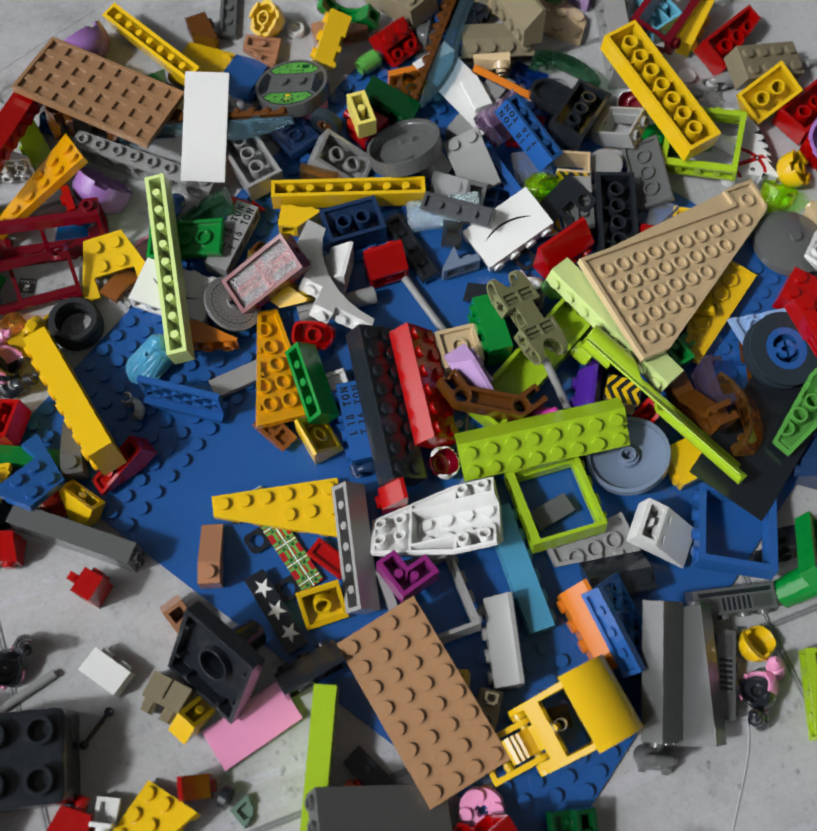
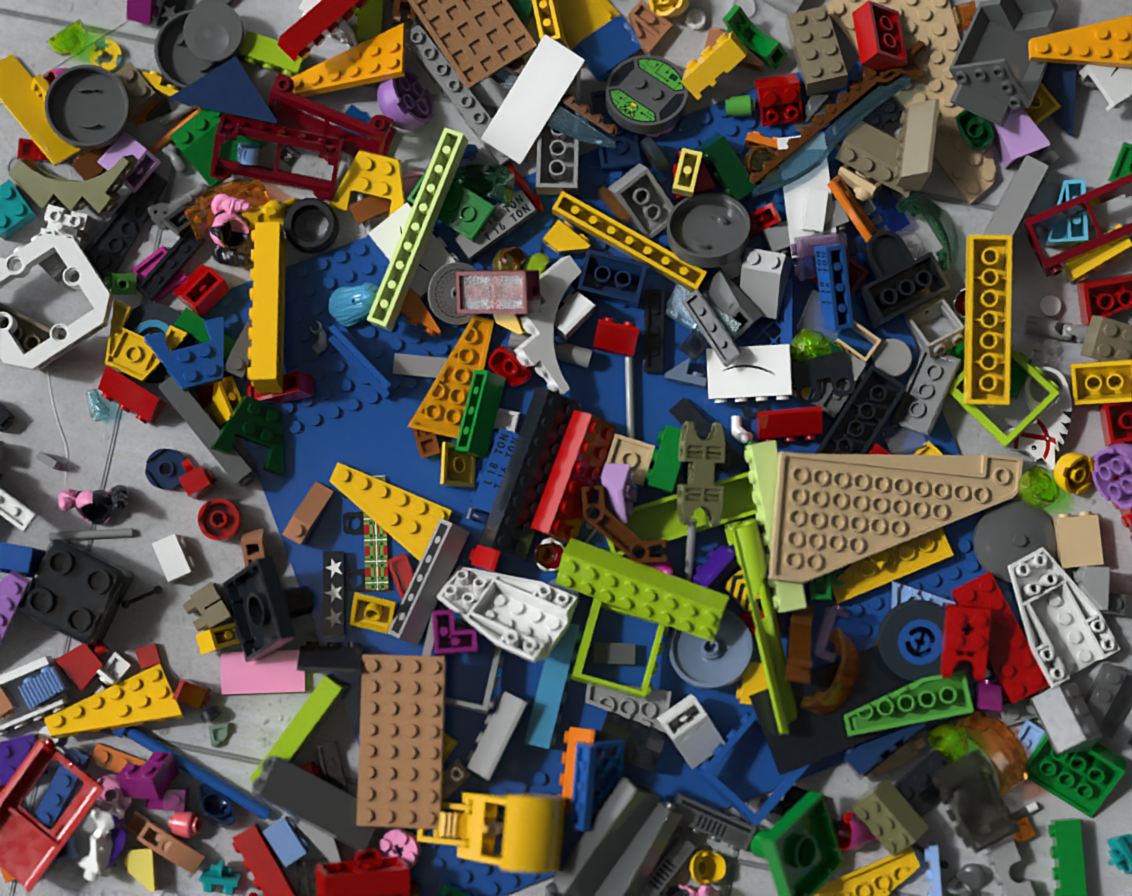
camera: 40 degrees right, 15 degrees up
(60, 608) = (154, 464): none -> dark blue plate
(68, 200) = (368, 102): red wing -> none
(120, 504) = (258, 424): none -> dark green wing
(123, 601) = (216, 508): none -> red brick
(133, 780) = (148, 656): none -> red tile
(442, 118) = (763, 219): none -> red slope

